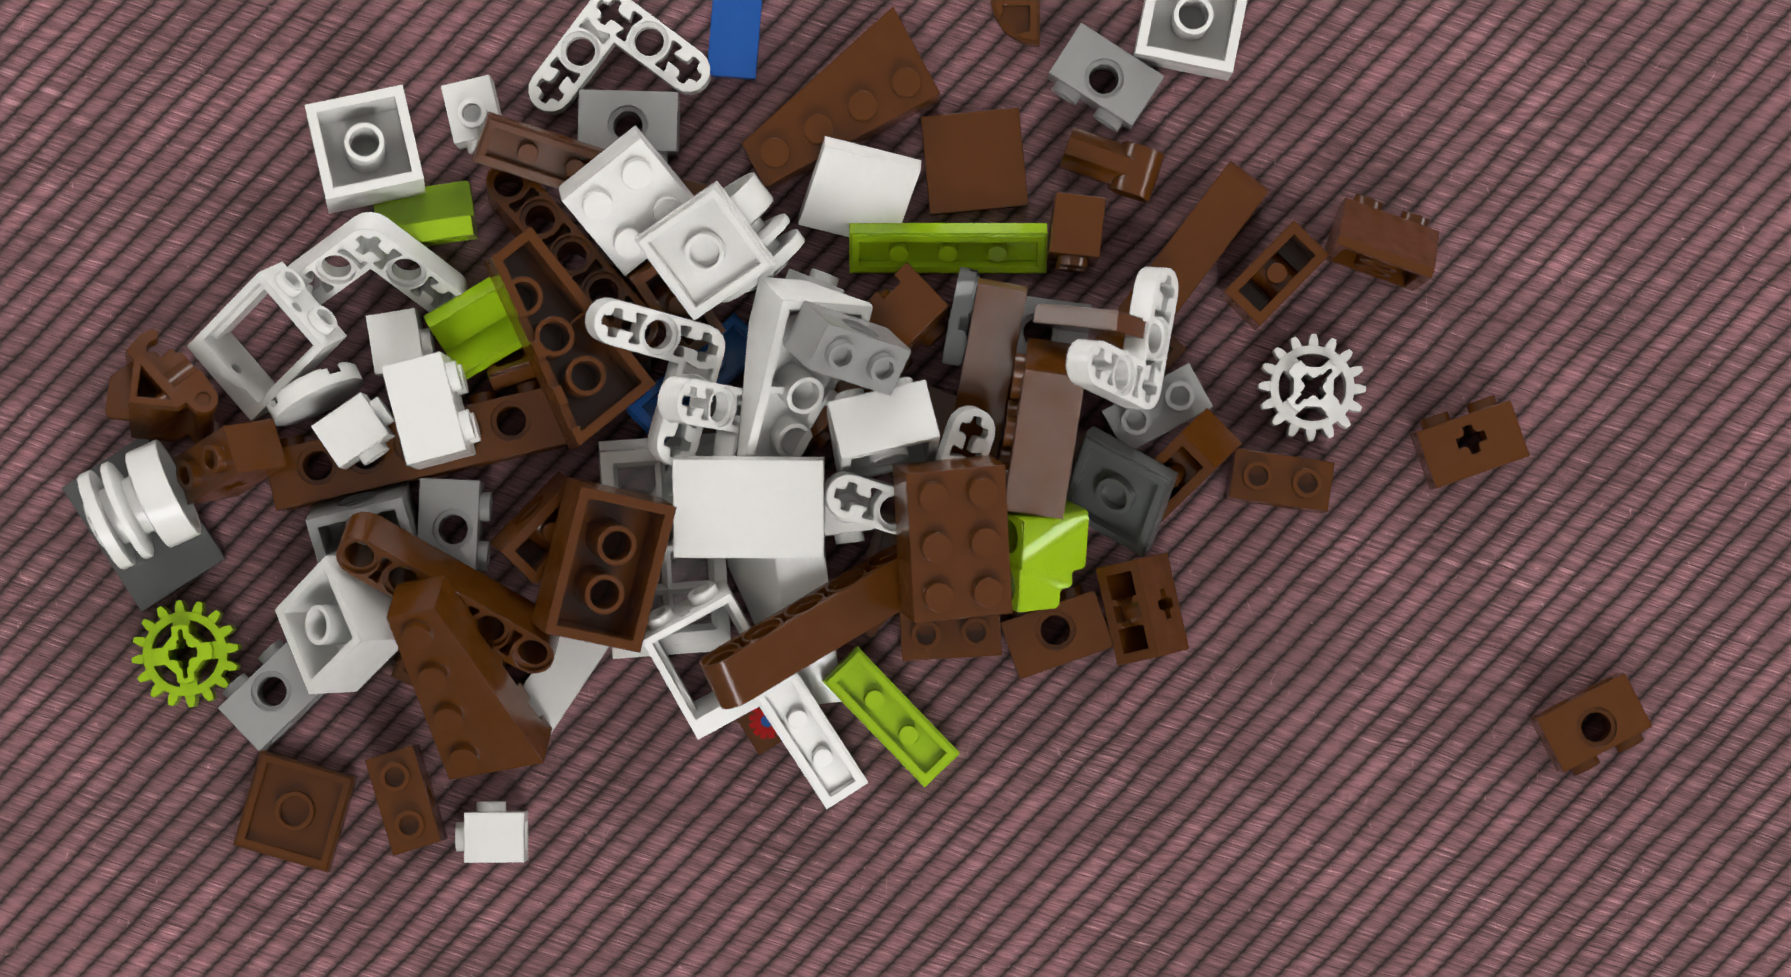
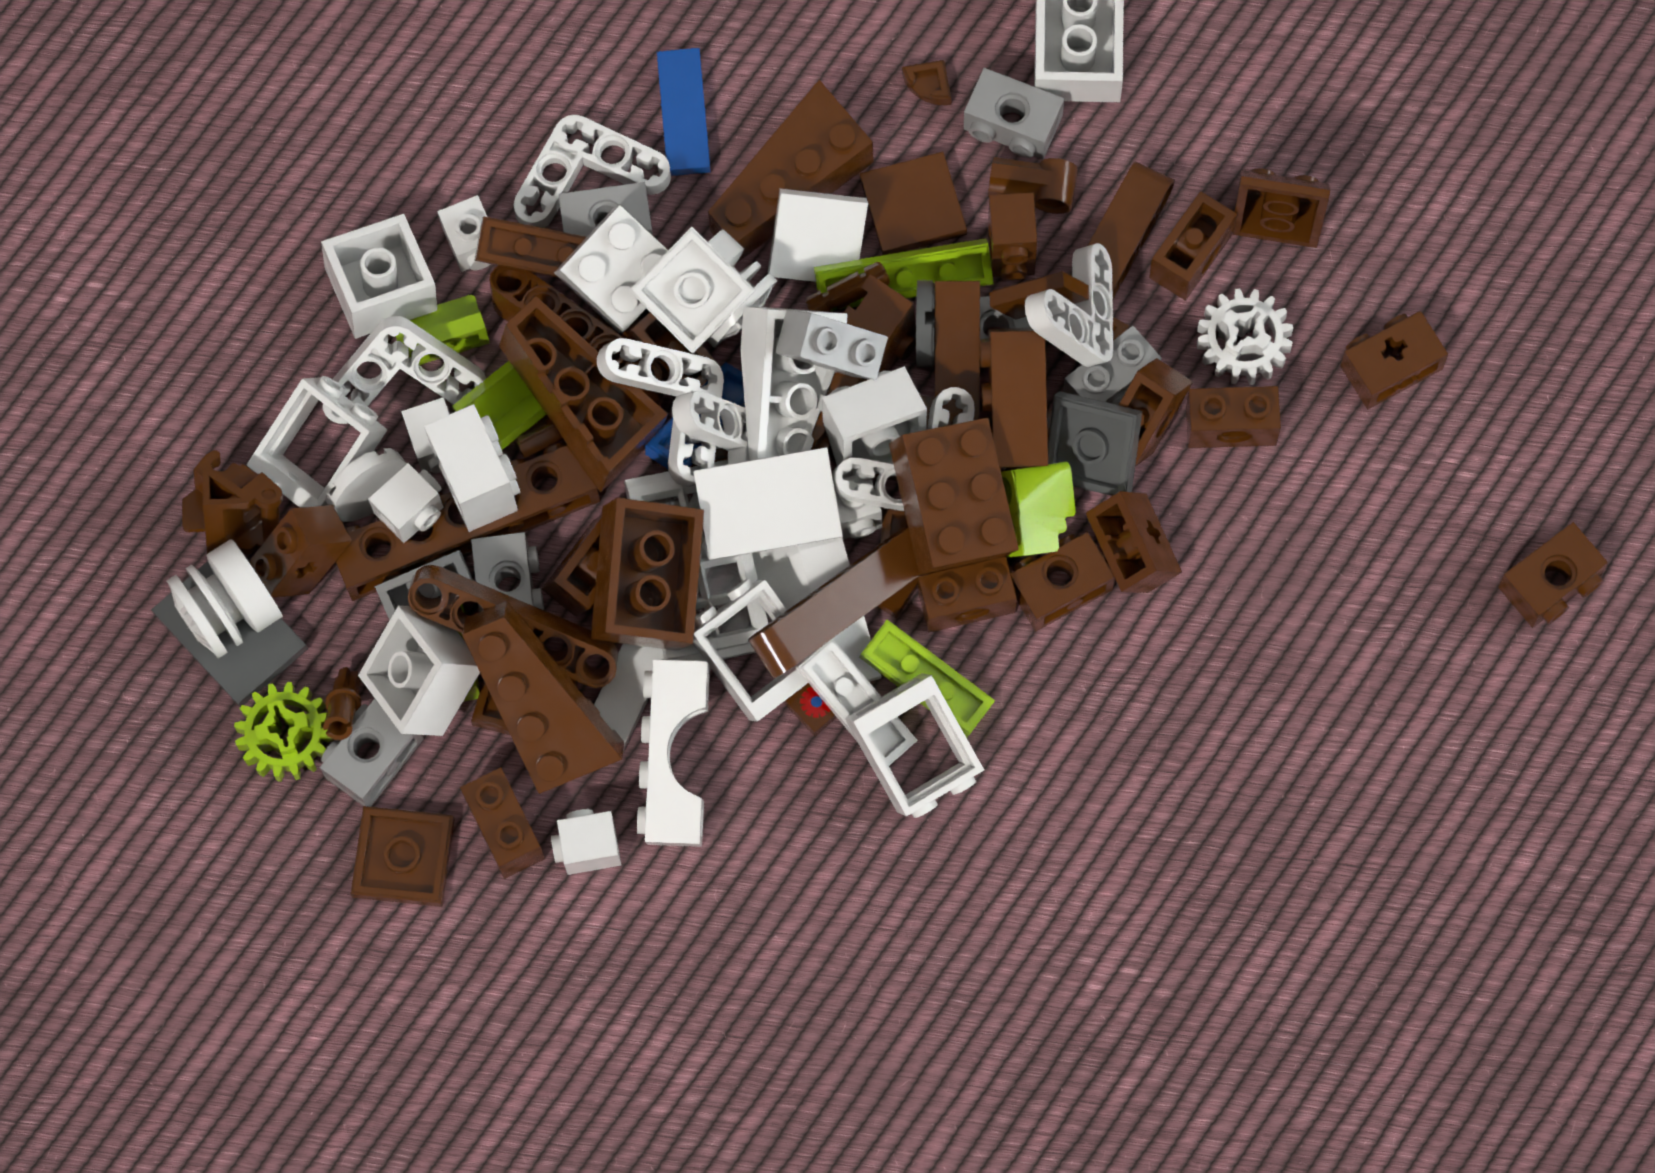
camera: 10 degrees left, 15 degrees down
(253, 638) = (342, 704): none -> reddish brown axle
(591, 817) = (677, 695): none -> white arch
(844, 755) = (891, 706): none -> white window
(881, 260) = (846, 290): none -> reddish brown axle

